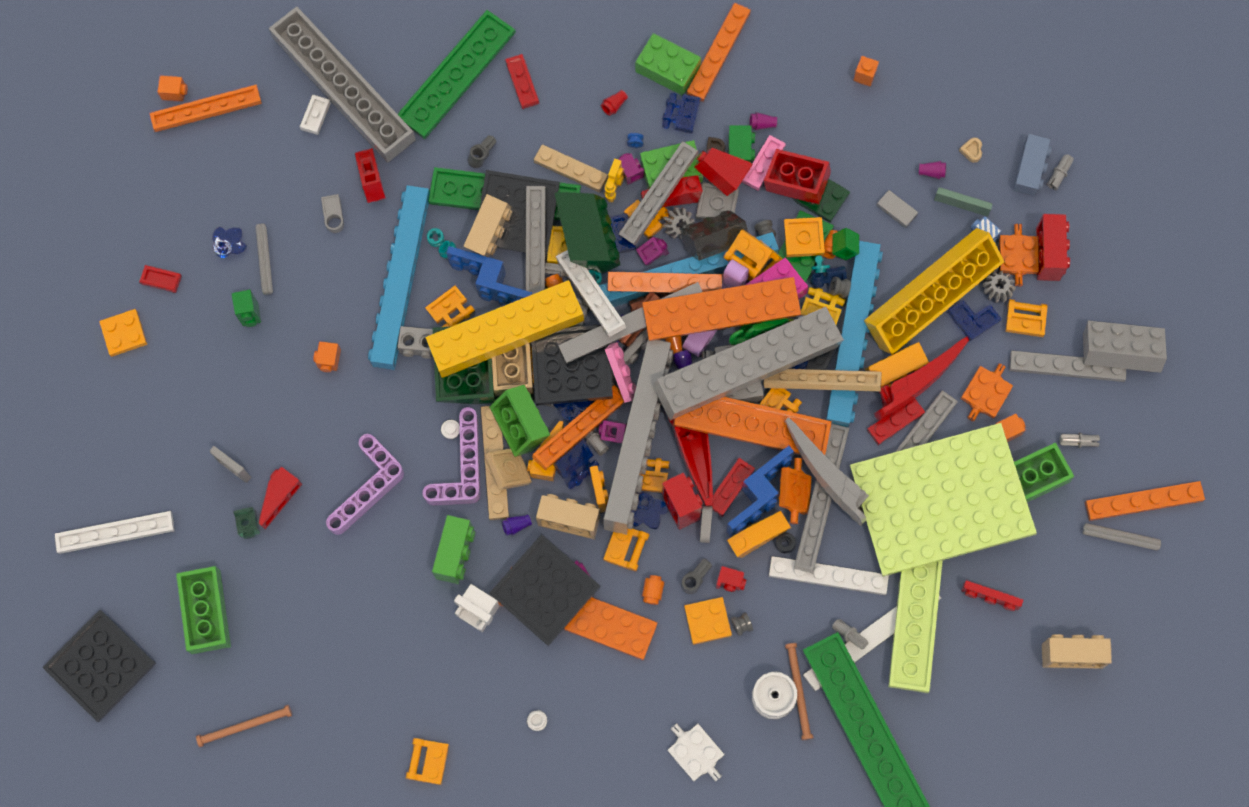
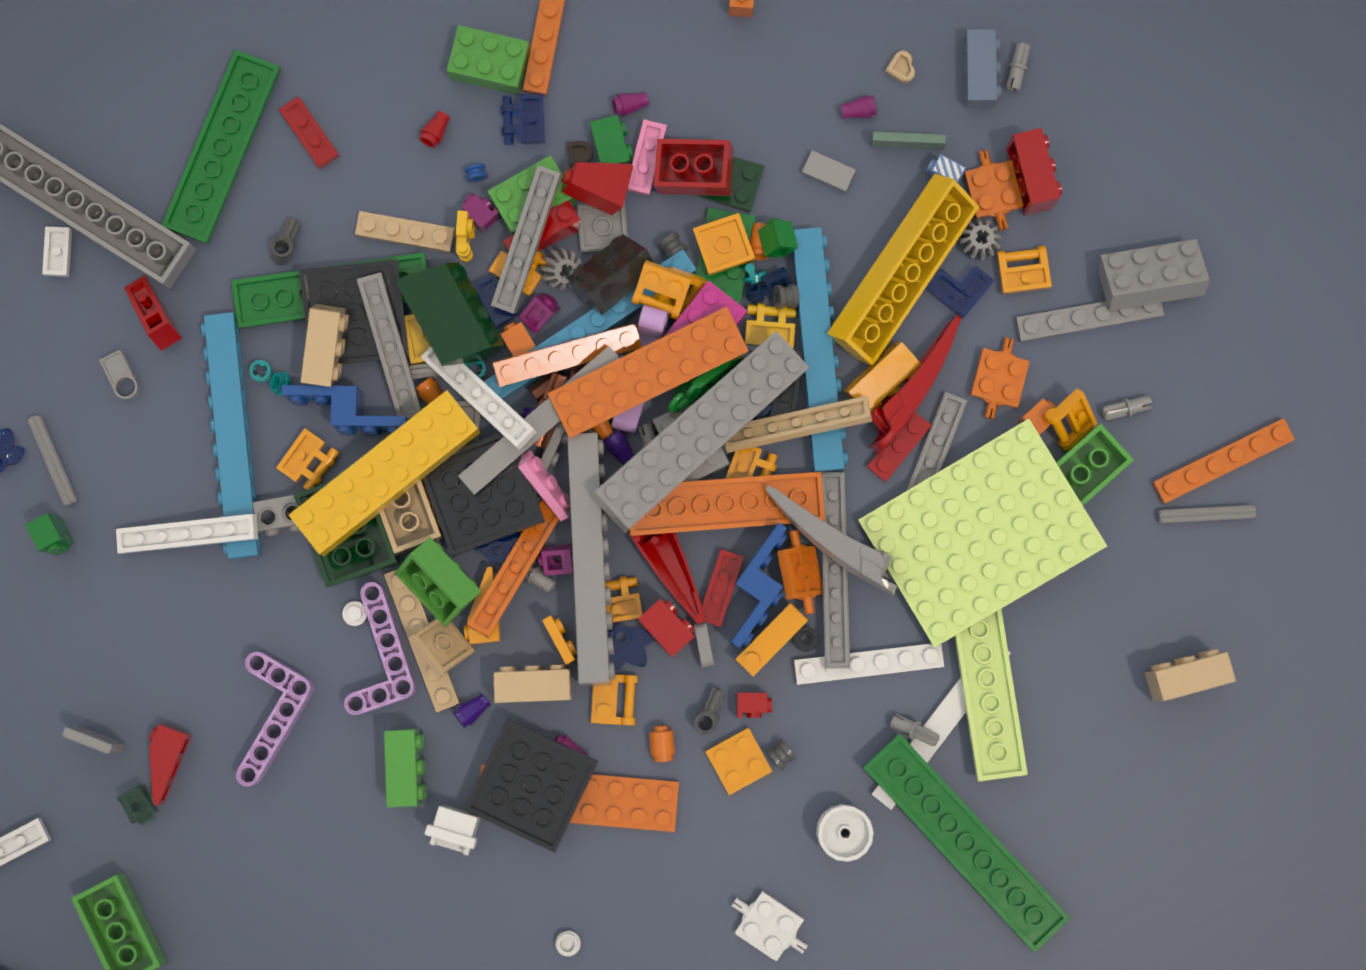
camera: 20 degrees left, 10 degrees up
(327, 356) = (172, 565): orange brick -> none
(346, 335) = (187, 533): none -> white plate
(574, 459) = (518, 613): clear blue plate -> none
(630, 262) = (517, 339): none -> orange brick
(800, 695) = (865, 802): nougat bar -> none
(991, 596) = (1071, 634): red plate -> none
(1039, 432) = (1078, 416): none -> light orange plate

